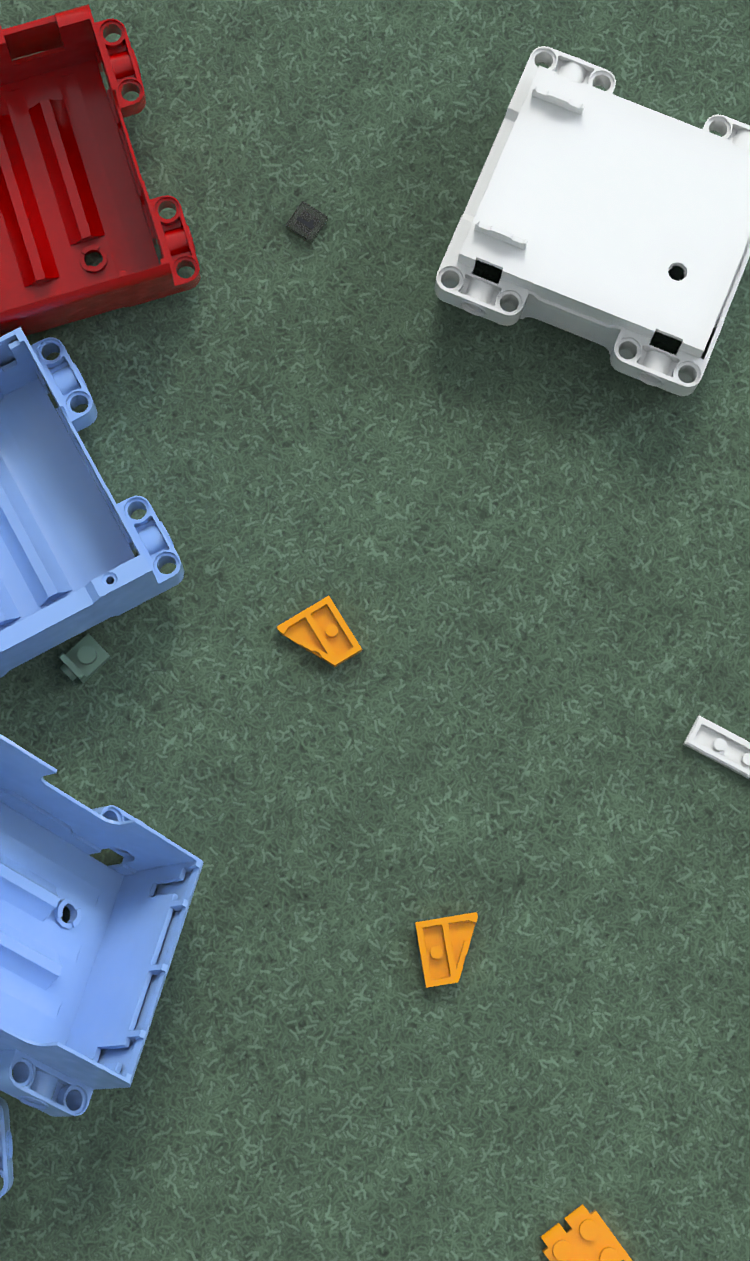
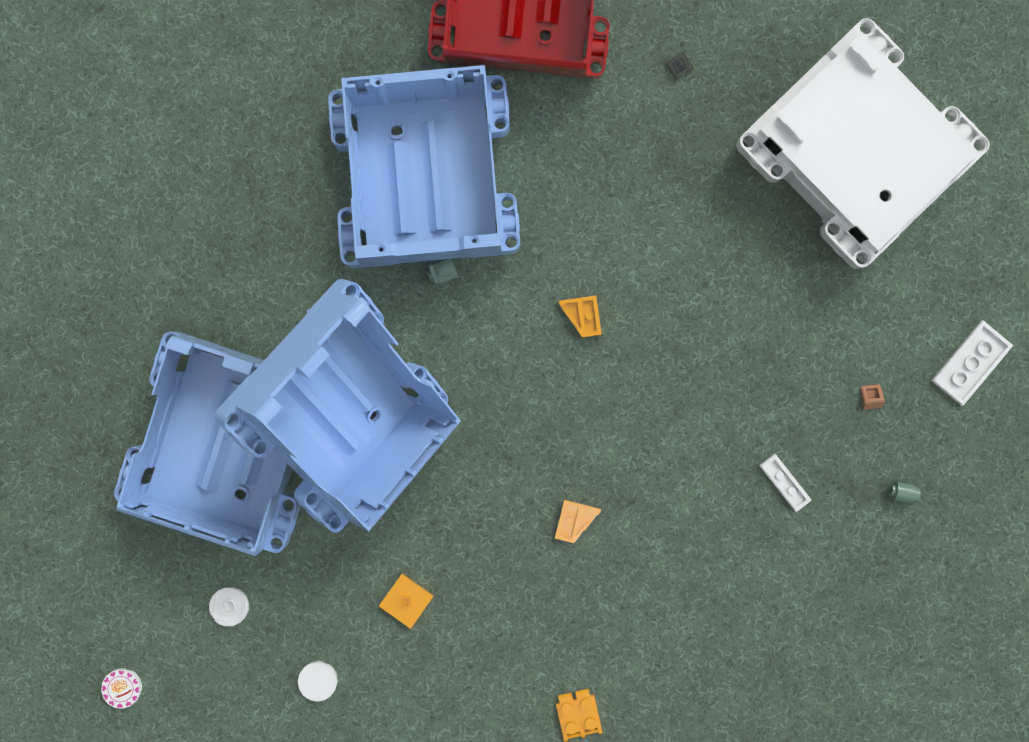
camera: 30 degrees right, 10 degrees up
(238, 1191) = (406, 600): none -> light orange plate

